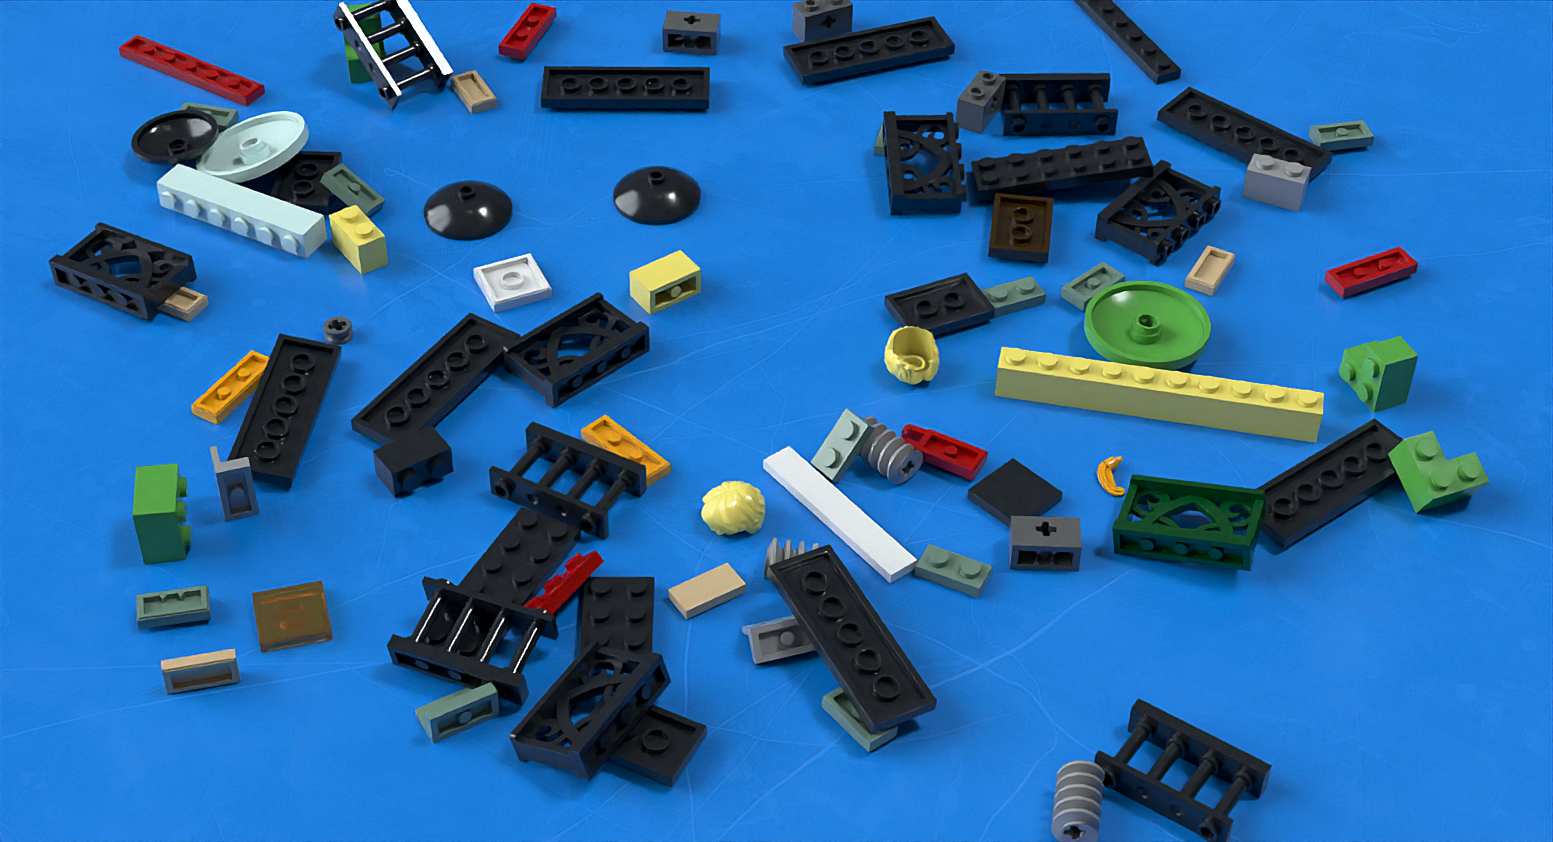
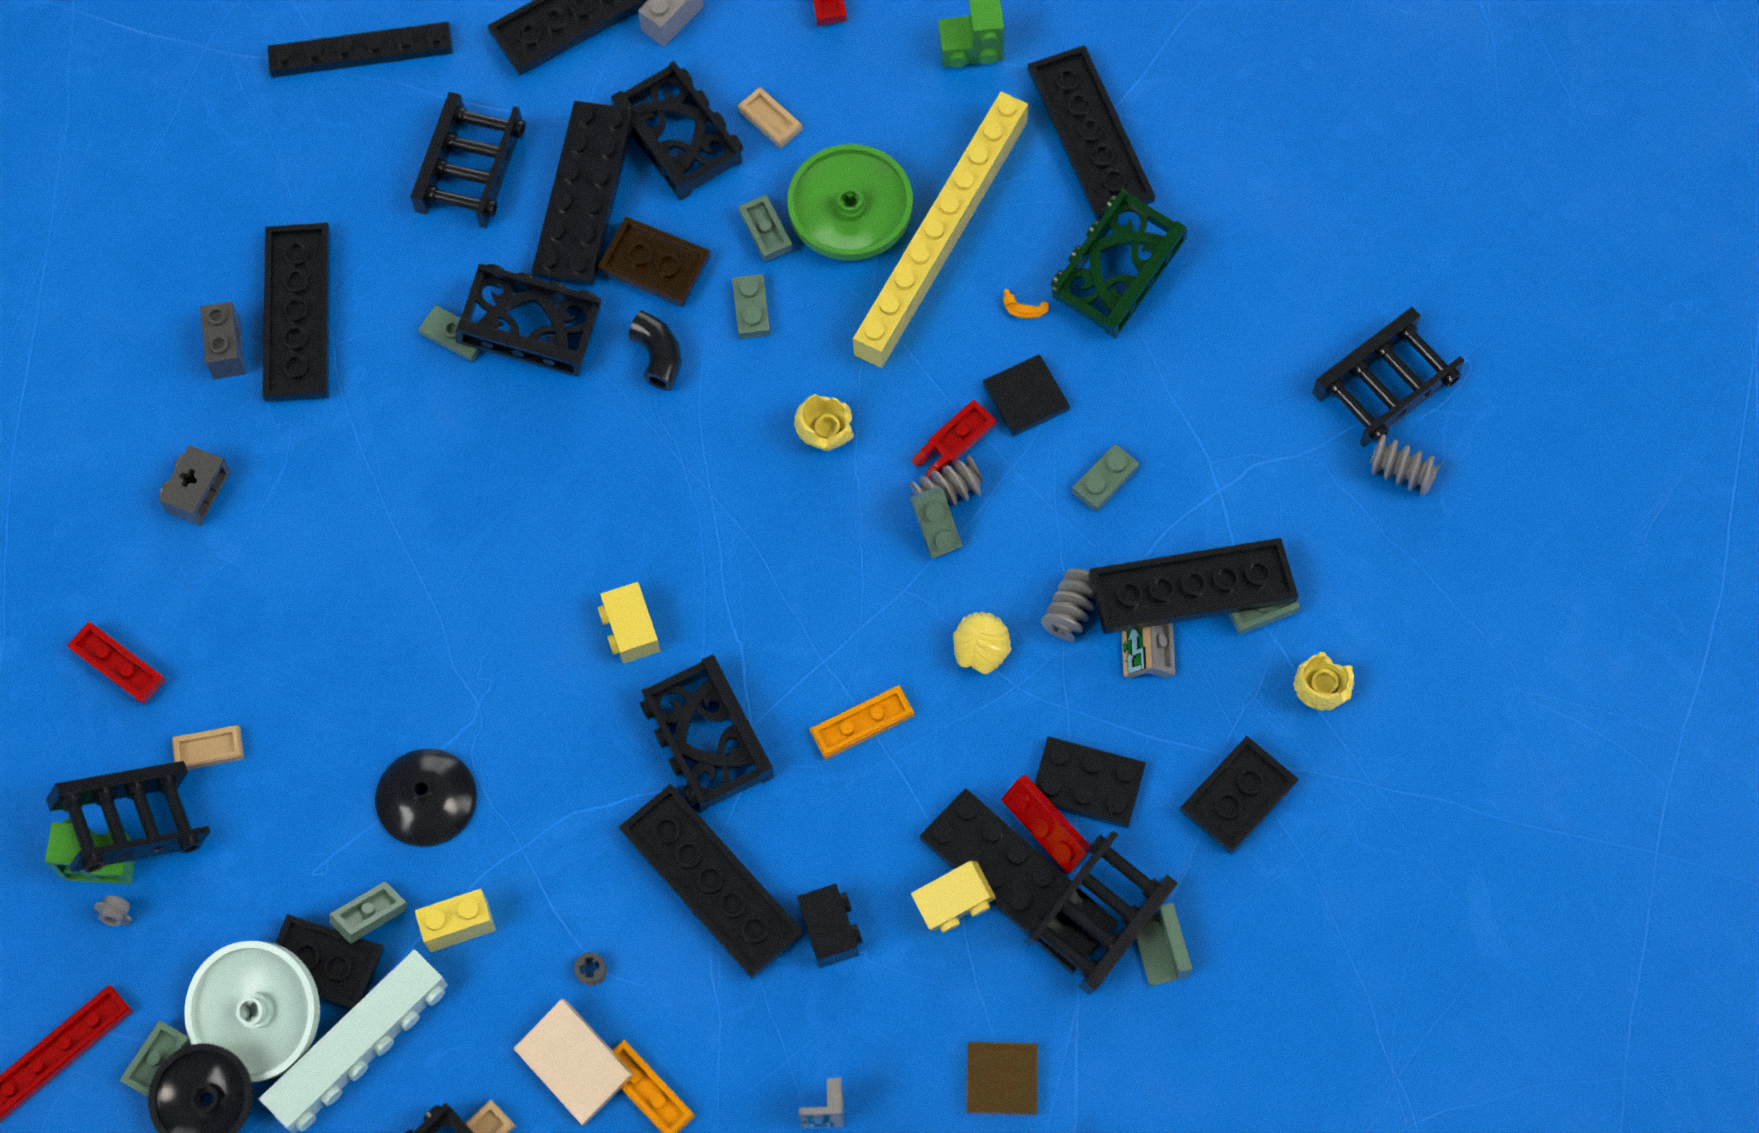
camera: 70 degrees left, 25 degrees up
(248, 333) = (573, 1061): none -> tan tile
(286, 408) = (710, 1041): black plate -> none
(322, 72) = (113, 911): none -> light grey plate
(462, 532) = (954, 896): none -> light yellow brick
(512, 282) = (568, 776): white tile -> none
(572, 455) = (889, 752): black fence -> none
(599, 734) = (1255, 831): black fence -> none
(625, 87) = (269, 582): black plate -> none
(657, 195) = (472, 614): black dish -> none
(707, 590) = (1072, 695): tan tile -> none
(790, 777) = (1322, 683): none -> light yellow hair
(840, 514) = (1004, 553): white tile -> none
(935, 247) = (662, 349): none -> black cylinder
(941, 305) = (751, 376): black plate -> none
(980, 101) = (439, 230): dark grey brick -> none
(1044, 543) = (1100, 407): dark grey brick -> none
(1430, 477) = (1120, 47): bright green brick -> none

